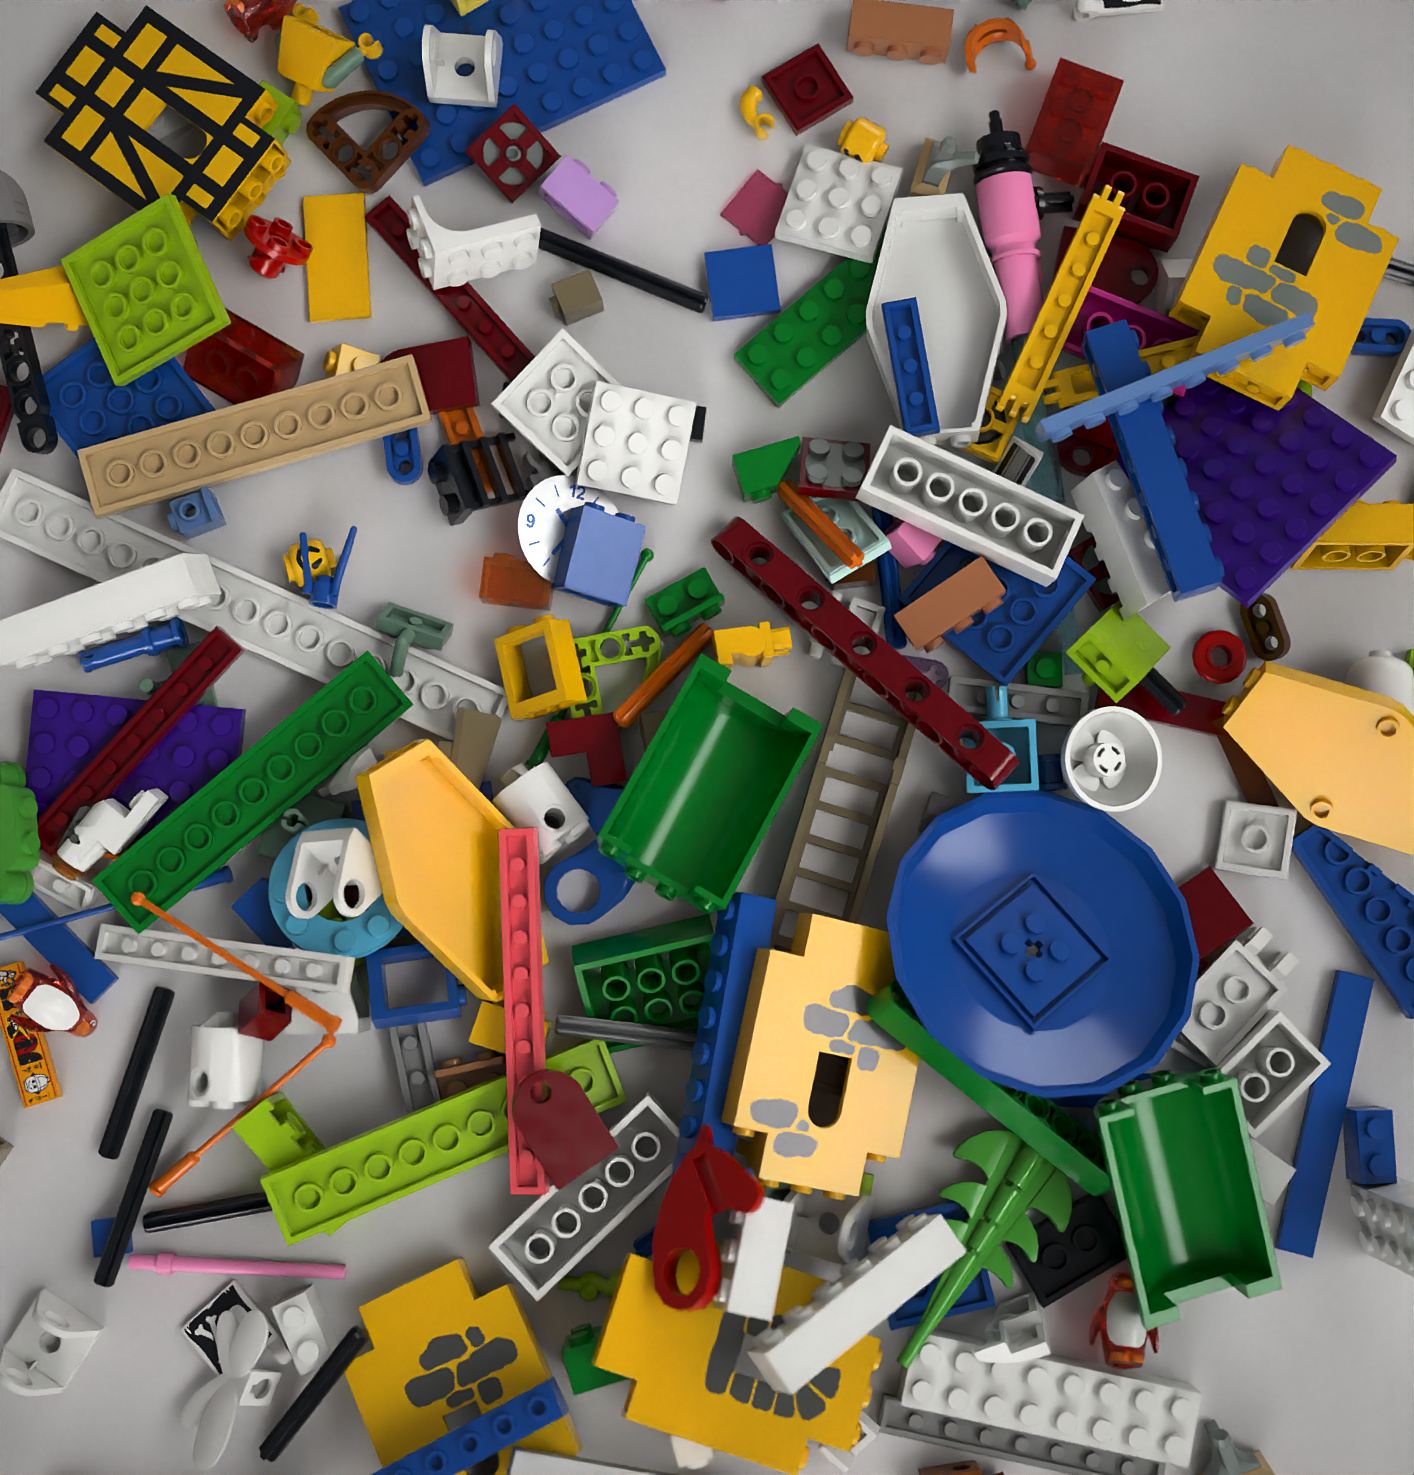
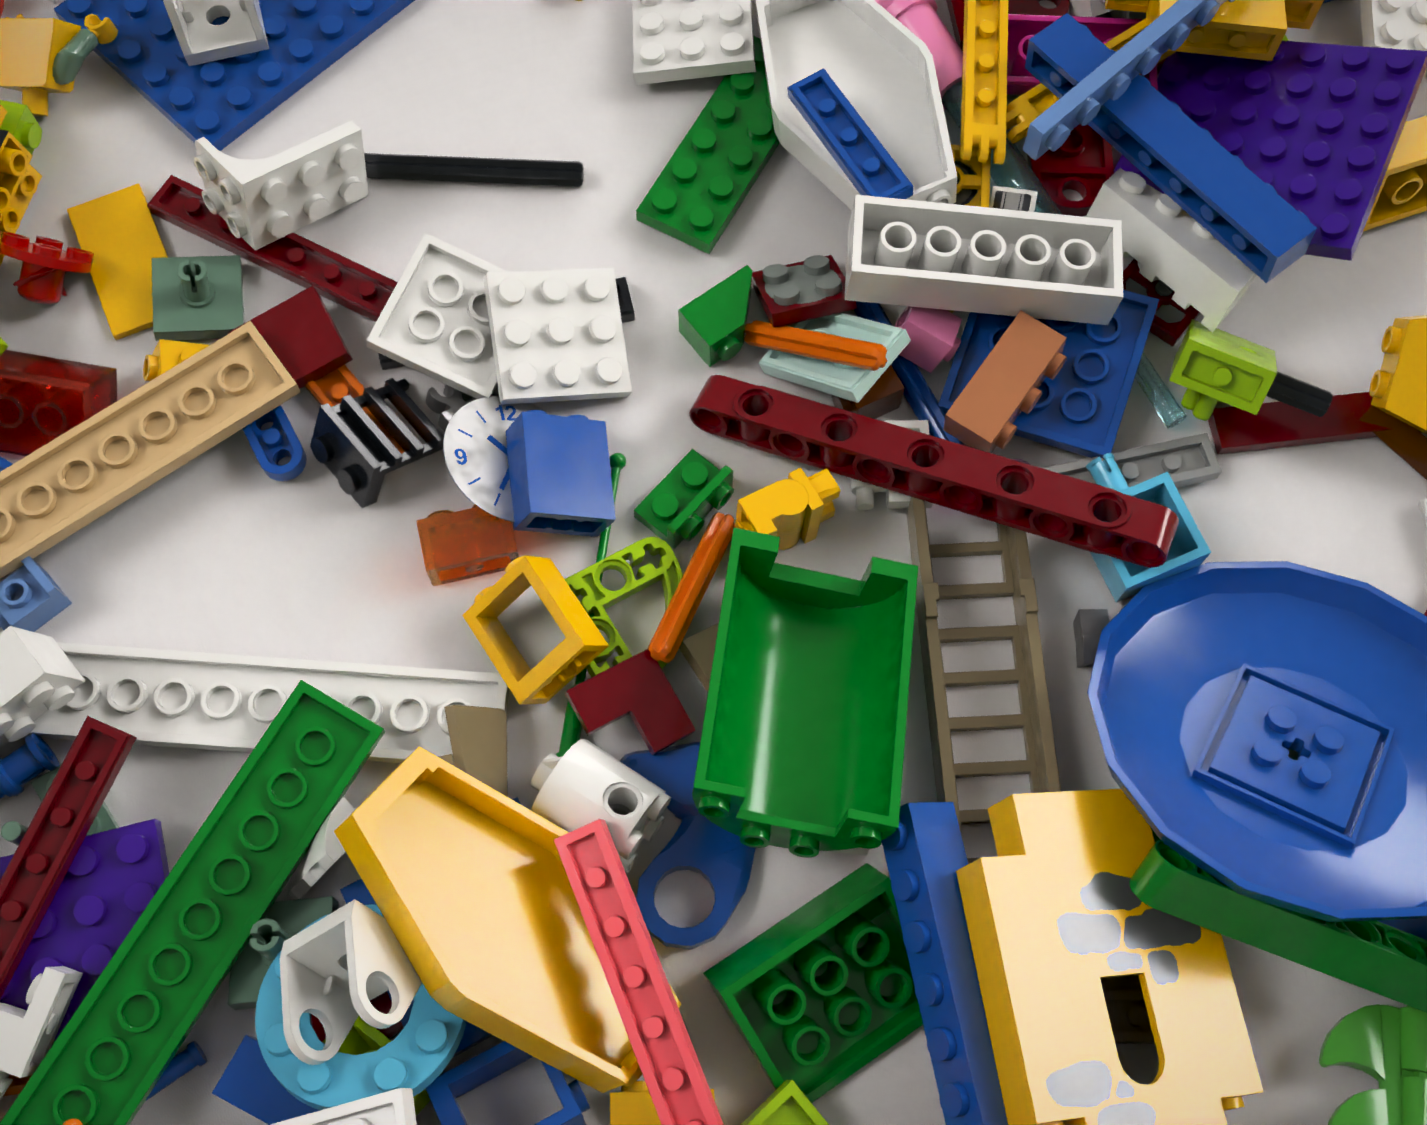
camera: 20 degrees left, 15 degrees down
(320, 561) = (192, 608): yellow head -> none
(325, 589) = (223, 626): blue plant -> none
(372, 158) = (137, 142): reddish brown beam -> none
(380, 311) = (196, 297): none -> sand green tile
(411, 627) = (345, 640): sand green plate -> none
(512, 153) = (302, 85): dark red piece -> none
(576, 297) = (430, 208): dark tan brick -> none
(579, 196) = (395, 106): lavender brick -> none
(625, 1032) = (823, 1062): dark grey axle -> none
(742, 282) = (615, 140): blue tile -> none
(757, 208) = (603, 66): clear pink piece -> none
(1044, 670) = (1142, 427): green plate -> none
(1050, 773) = (1219, 548): dark blue bush -> none
(1127, 759) = (1274, 491): white piece -> none
(1235, 653) = (1339, 334): red piece -> none
(1262, 628) = (1362, 301): reddish brown plate -> none

